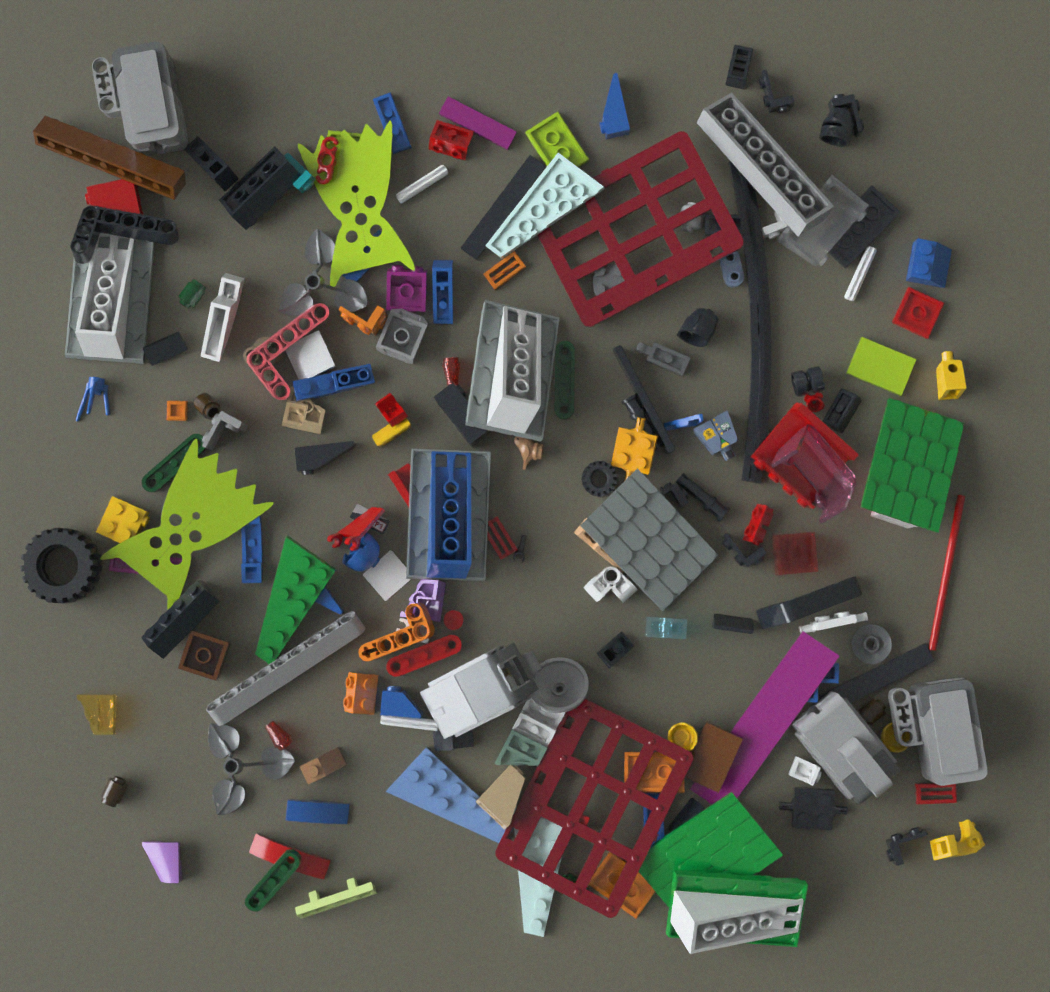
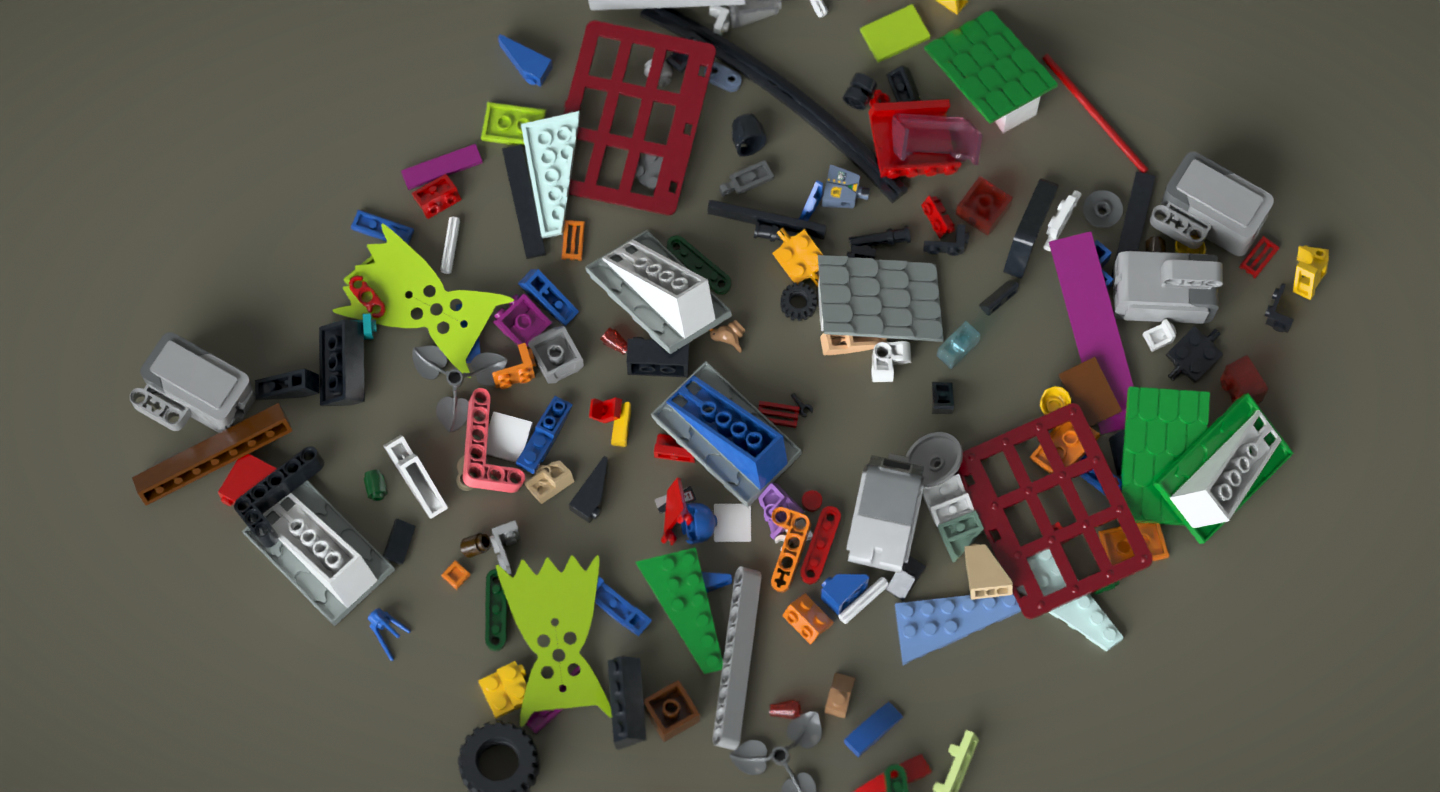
camera: 50 degrees left, 15 degrees down
(818, 867) = (1243, 378): none -> clear red brick

